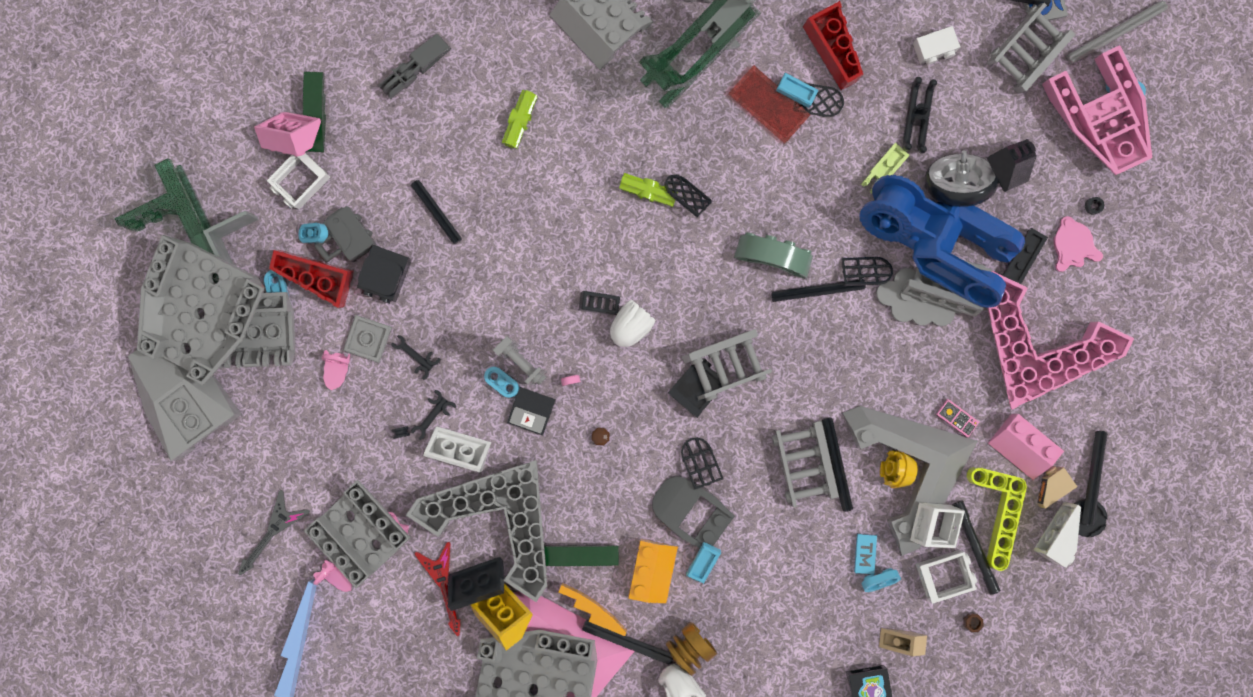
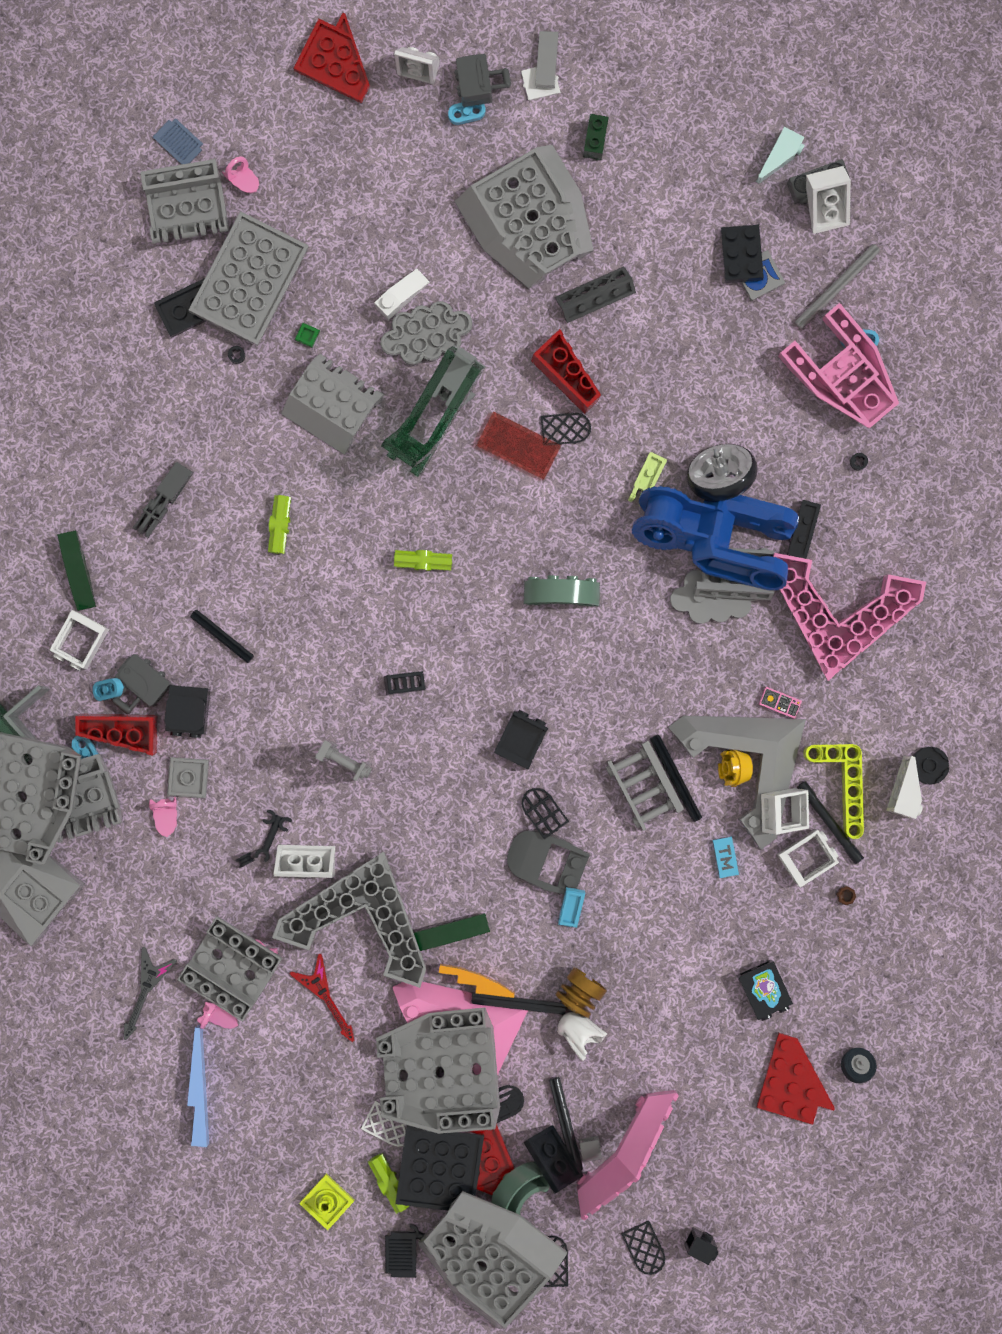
camera: 20 degrees left, 0 degrees up
(288, 133) = (58, 598): bright pink slope -> none
(426, 364) = (252, 787): black bar -> none
(475, 583) = (357, 985): black plate -> none
(501, 382) = (330, 785): medium azure plate -> none
(504, 617) = (389, 1007): yellow slope -> none
(531, 411) = (366, 805): black tile -> none
(570, 380) = (396, 765): bright pink tile -> none
(600, 436) = (440, 812): reddish brown tile -> none
(630, 325) = (440, 696): white hair -> none
(652, 572) = (525, 929): light orange slope -> none
(680, 199) = (455, 562): black window -> none
(713, 352) = (527, 703): light grey fence -> none
(797, 90) = (541, 425): medium azure tile -> none
(817, 290) = (613, 614): black axle -> none
(875, 274) = (651, 590): black window -> none
(885, 579) = (746, 879): medium azure plate -> none
(903, 641) = (783, 932): tan slope -> none
(918, 115) = (666, 418): black piece -> none
(936, 45) = (665, 346): white brick -> none
(1013, 164) = (768, 444): black slope -> none
(1025, 446) = (851, 713): bright pink slope -> none
(1048, 53) = (775, 325): light grey fence -> none
(1054, 486) = (889, 743): tan slope -> none
(1073, 244) = (848, 503): bright pink tile -> none
(1094, 478) = (925, 725): black axle -> none

